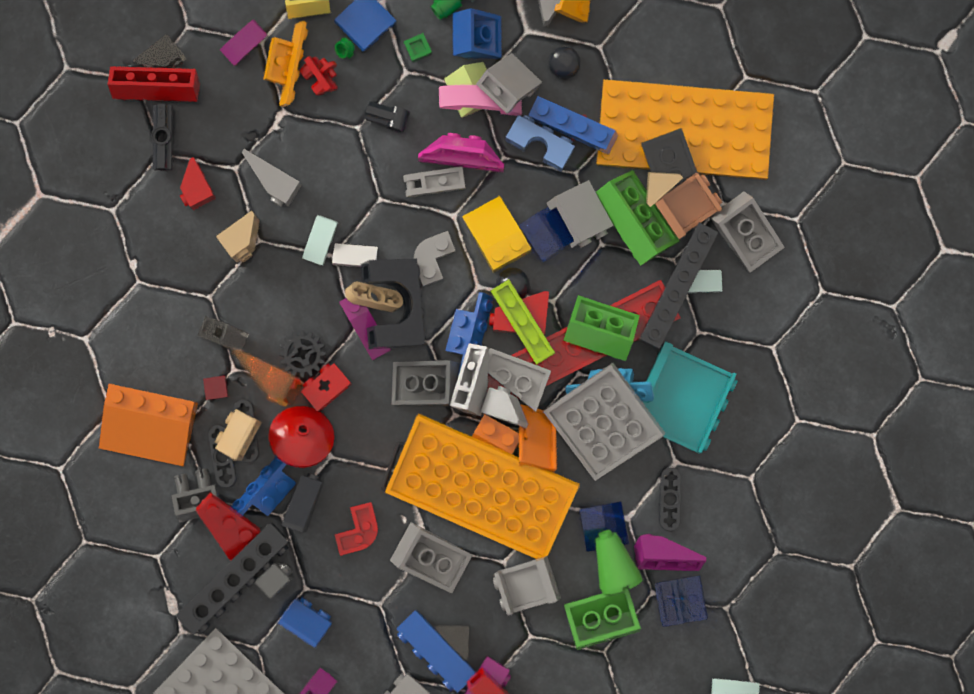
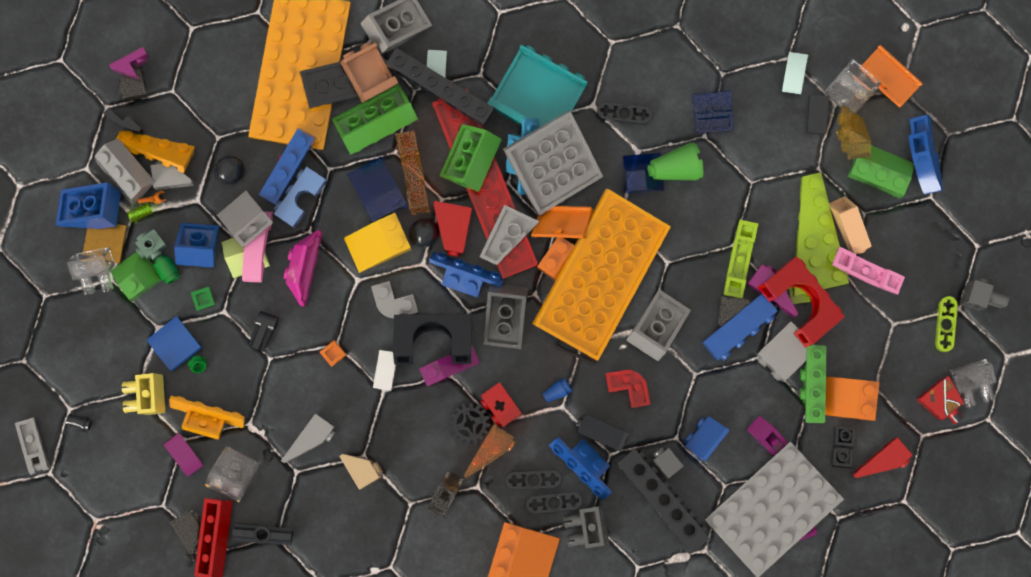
camera: 85 degrees left, 0 degrees up
(195, 186) = (310, 508): red slope -> none
(215, 387) = (492, 504): dark red tile -> none
(226, 98) = (232, 474): none -> clear slope
(227, 525) = (616, 501): red wing -> none
(237, 435) = (536, 485): tan slope -> none
(300, 448) = (551, 436): red dish -> none
(320, 240) = (368, 400): light aqua slope -> none
(323, 72) = (227, 384): red hips -> none
(348, 450) = (558, 390): none -> blue cone
(365, 299) = (418, 370): tan beam -> none
(369, 196) = (333, 353): none -> orange tile
(435, 181) = (326, 293): light grey plate -> none
(472, 381) = (507, 273): light grey slope -> none
(504, 406) = (532, 248): slope -> none
(514, 645) = (740, 259): none -> lime slope
(522, 322) = (459, 226): lime tile -> none
(526, 585) = (689, 243): light grey panel -> none
(582, 213) = (367, 165): light grey panel -> none
(602, 258) = (413, 172): none -> clear orange arch
(602, 618) = (723, 180): bright green slope -> none
(659, 184) = (349, 95): tan slope -> none
(663, 554) = (672, 122): magenta slope -> none

